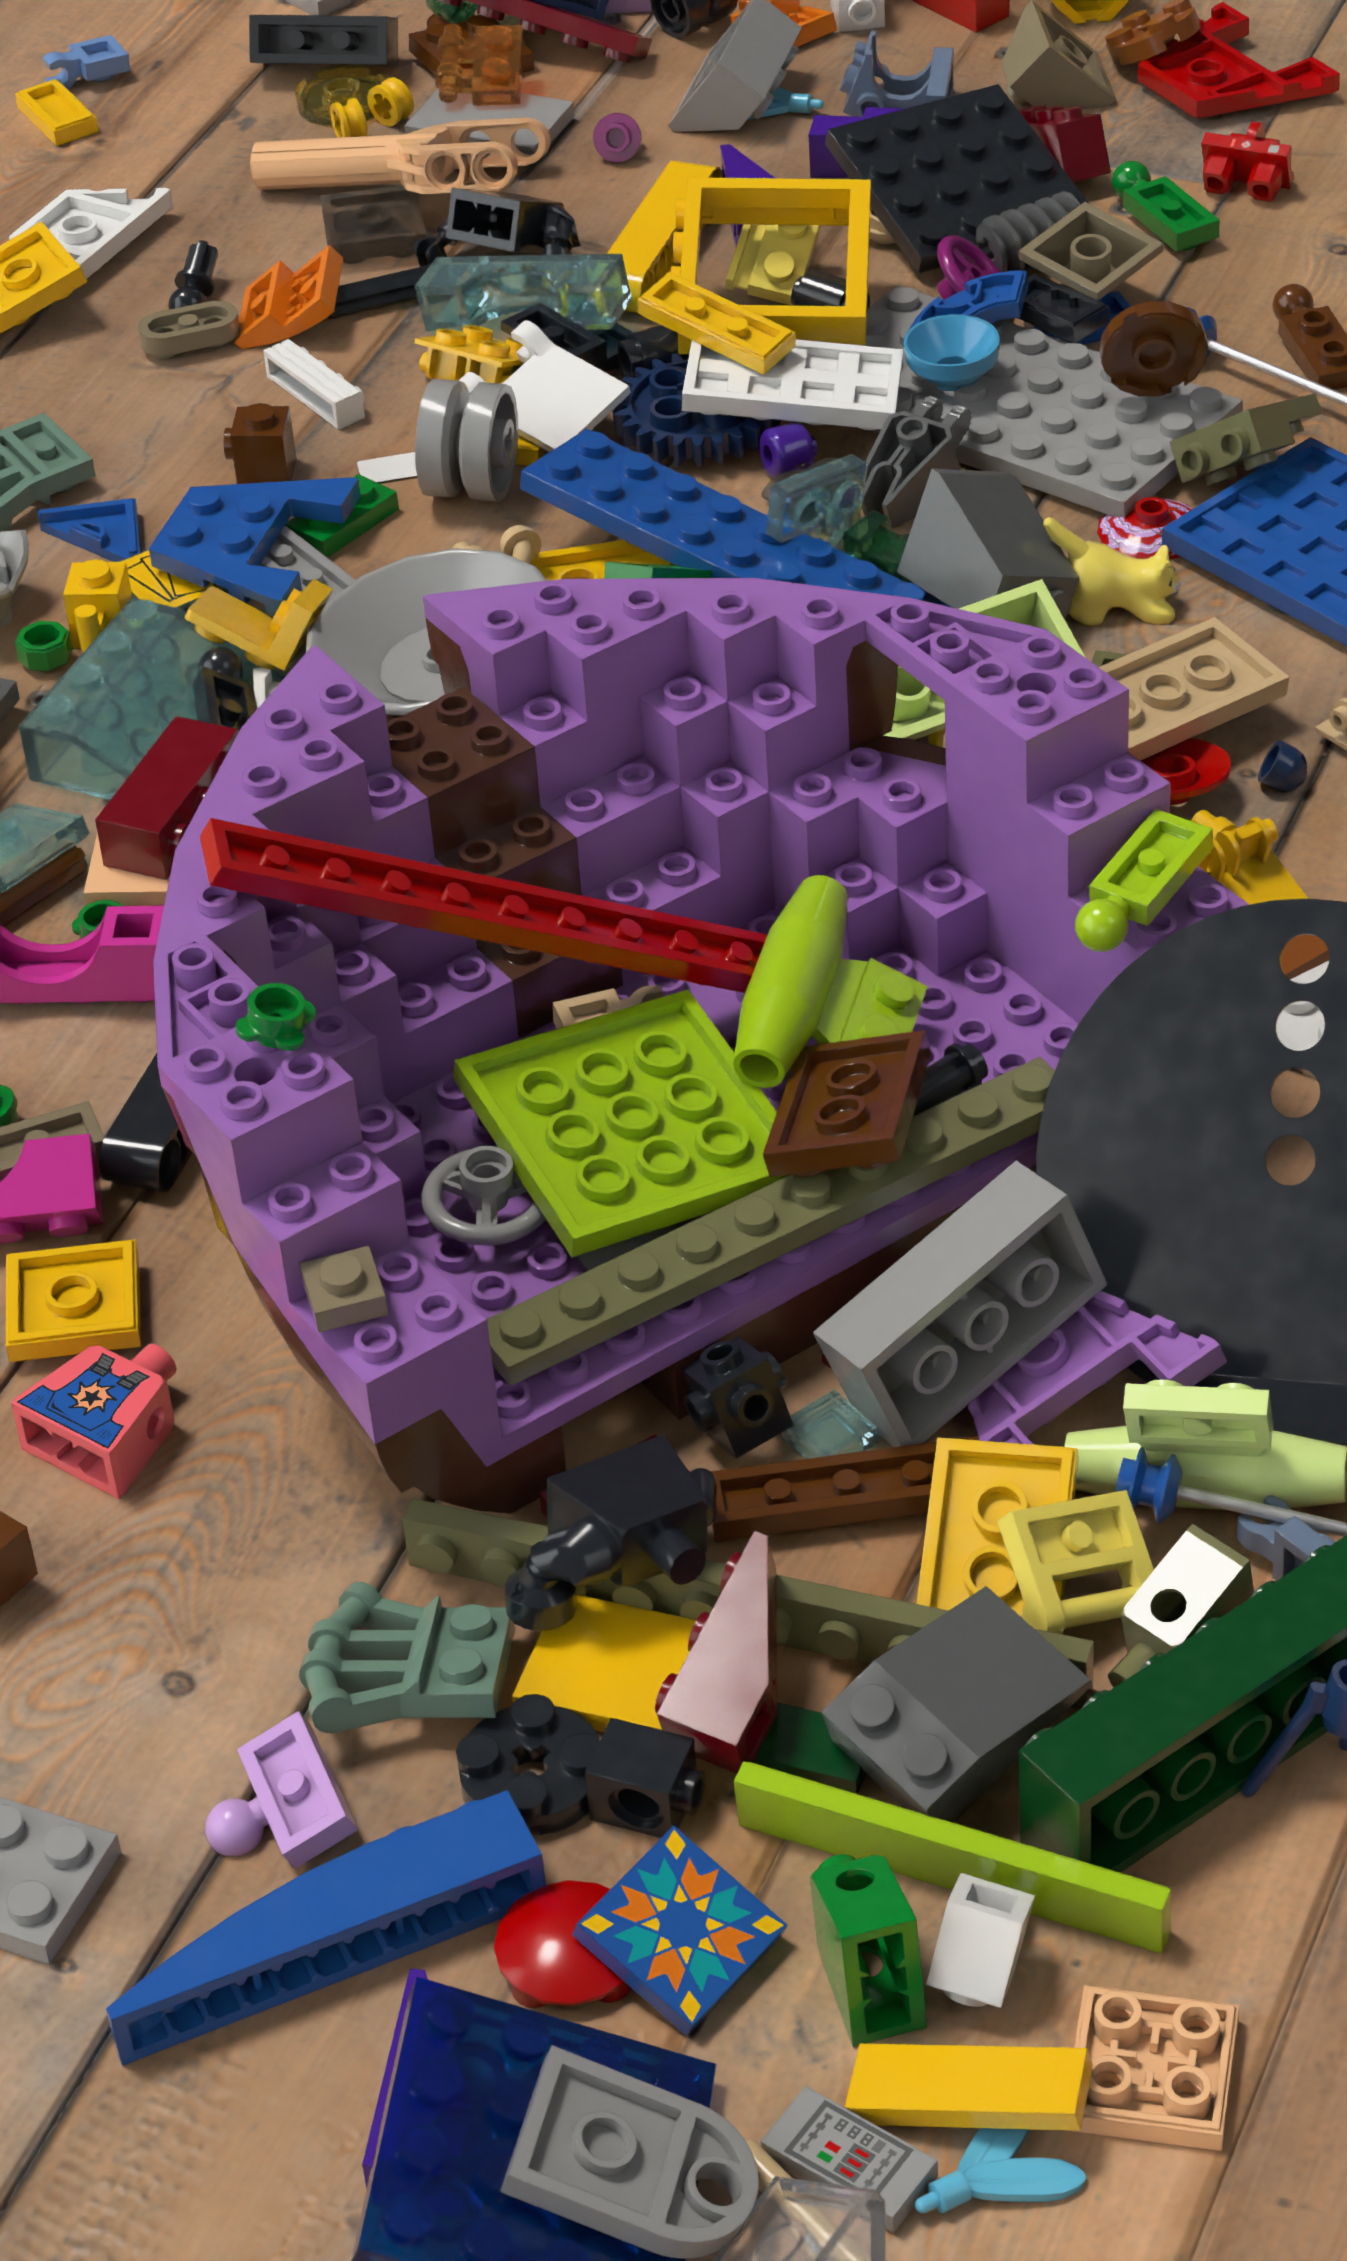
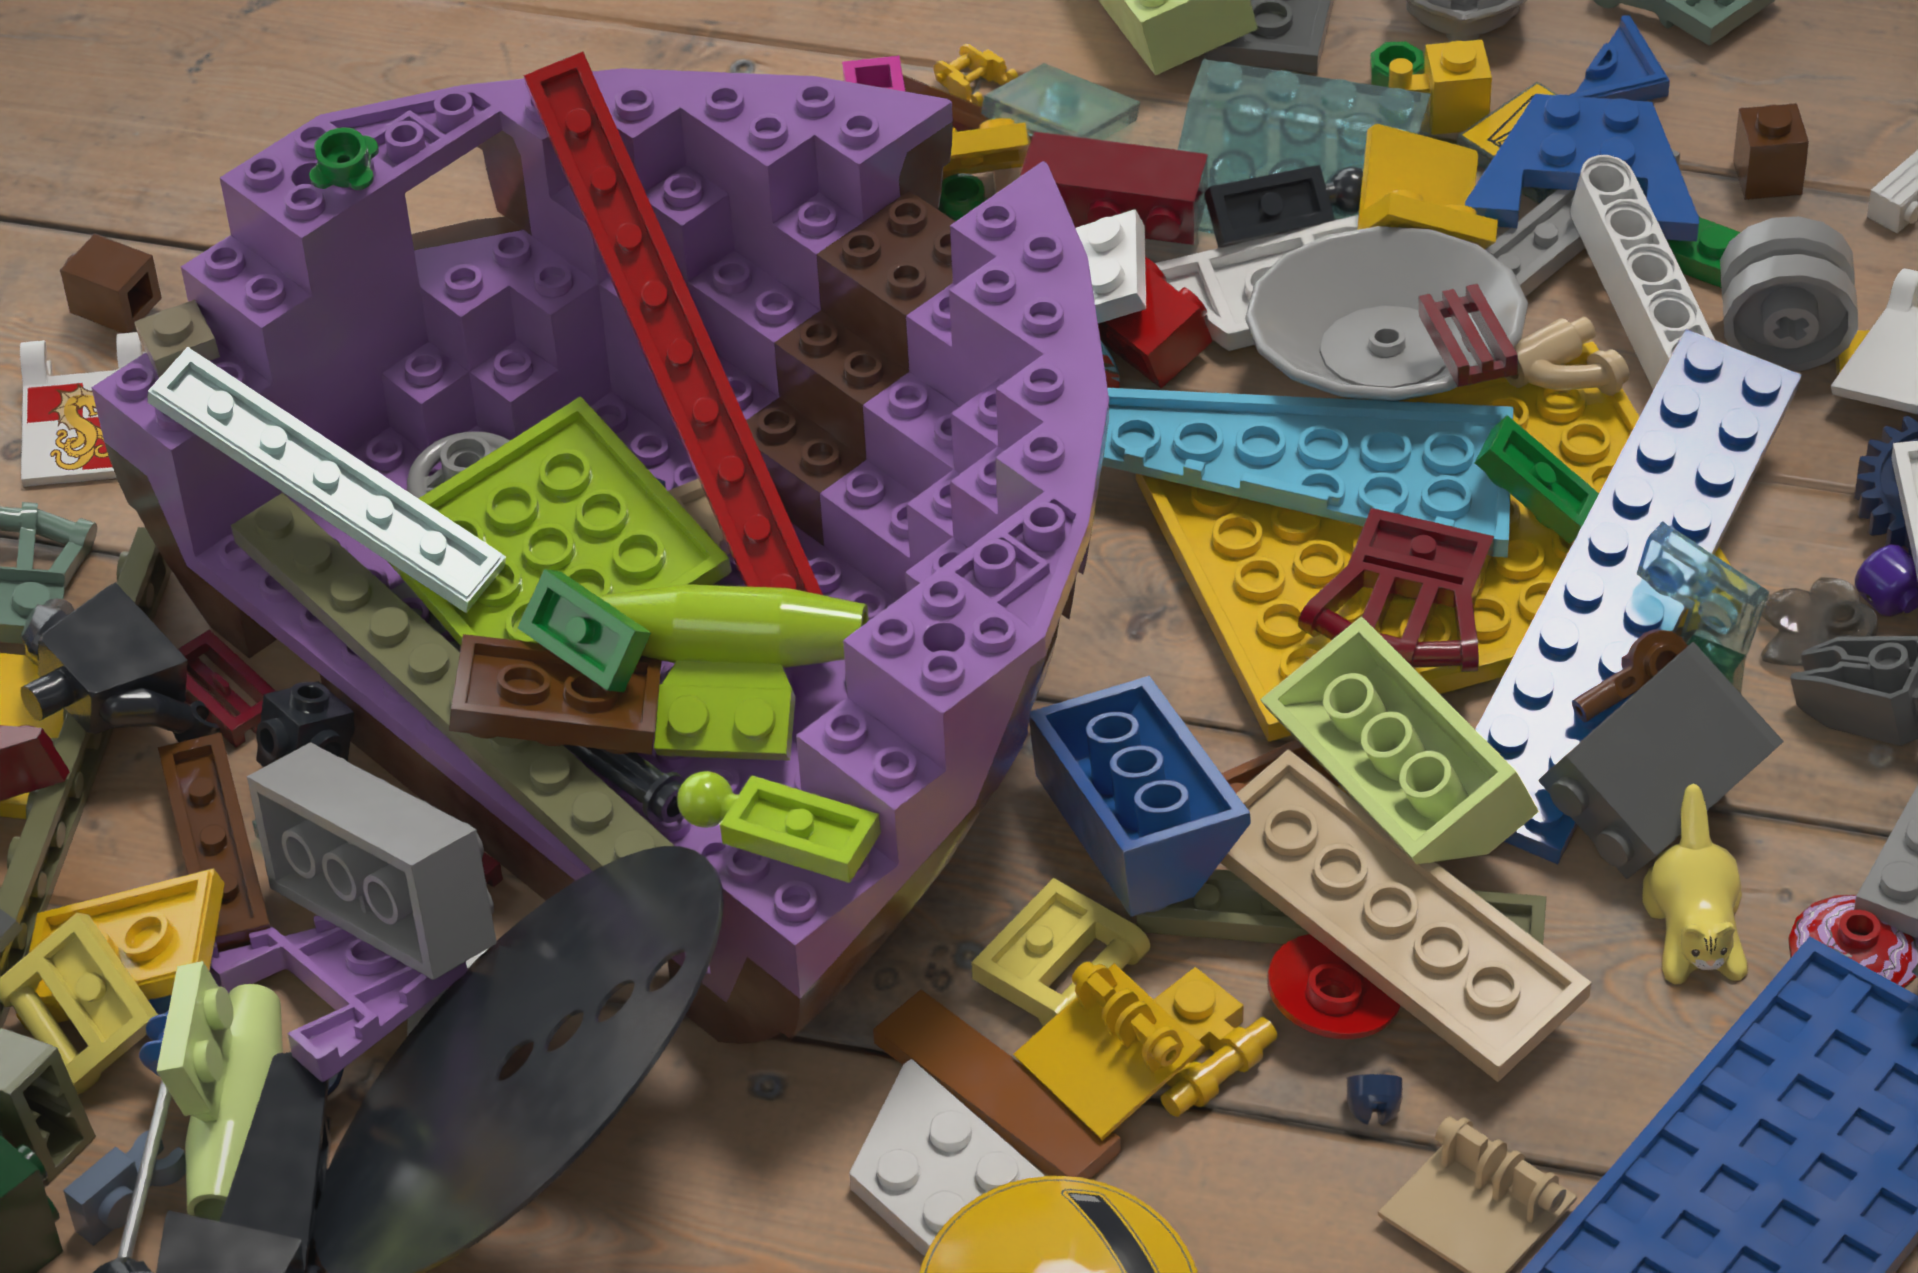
camera: 80 degrees right, 5 degrees up
(74, 884) = (990, 148): none -> yellow plate
(157, 1609) = (61, 419): none -> flag
(402, 518) = (1634, 262): none -> white beam
(504, 564) = (1475, 303): none -> dark red tile
(542, 1220) = (326, 479): none -> light aqua tile
(796, 1056) = (584, 630): none -> green plate
(886, 544) = (1641, 663): none -> reddish brown plate

